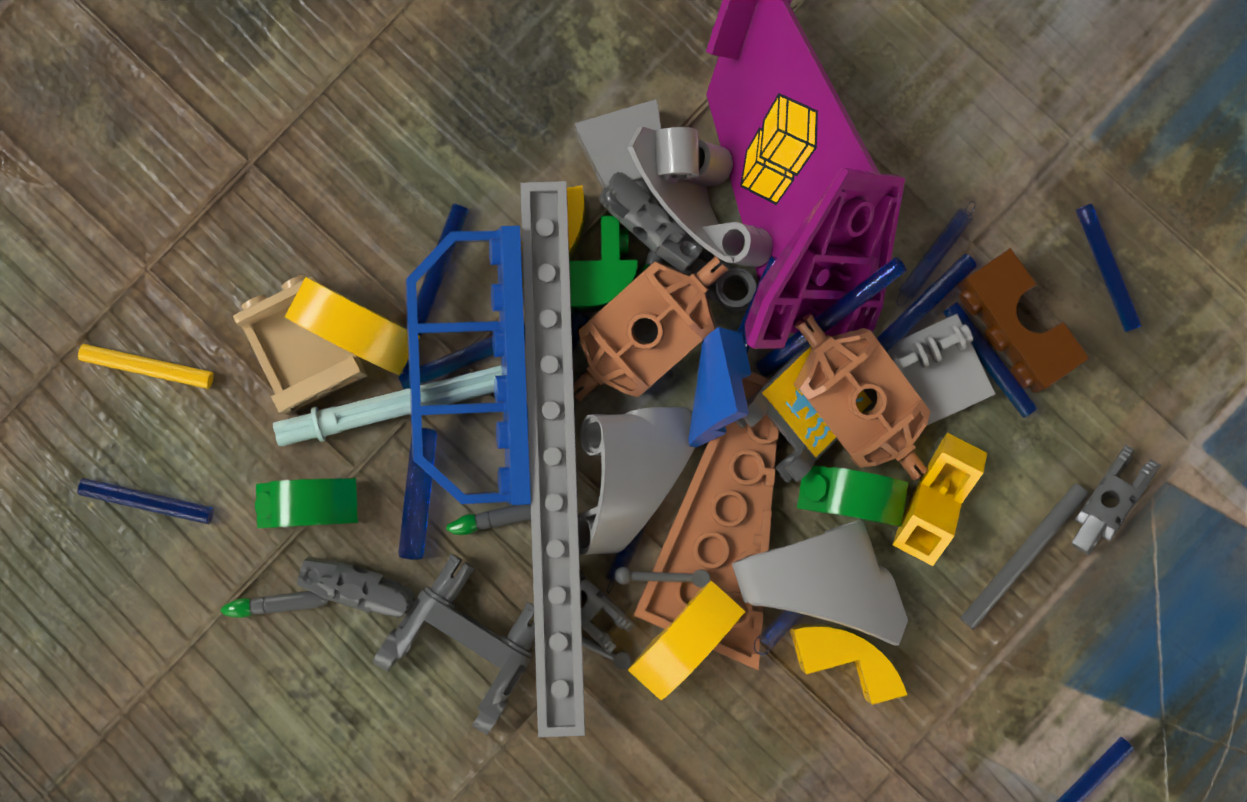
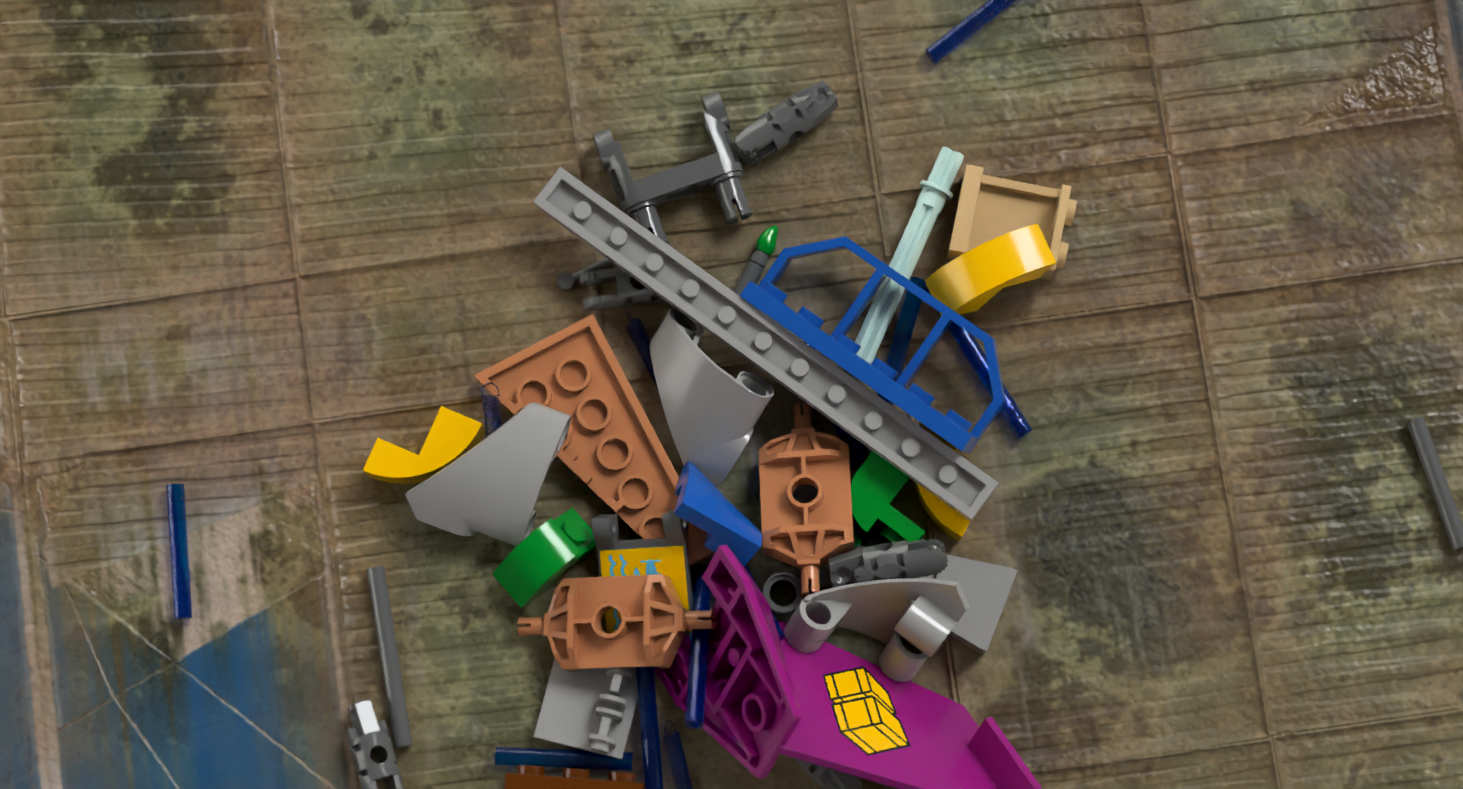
camera: 130 degrees right, 5 degrees down
(145, 366) = (1088, 94): yellow bar -> none
(273, 604) = (837, 30): dark grey piece -> none
(306, 502) = (879, 133): green brick -> none
(417, 501) = (815, 220): clear blue axle -> none
(625, 575) = (579, 385): dark grey hinge -> none
(686, 640) = (540, 336): yellow brick -> none
(937, 499) = (488, 623): yellow brick -> none

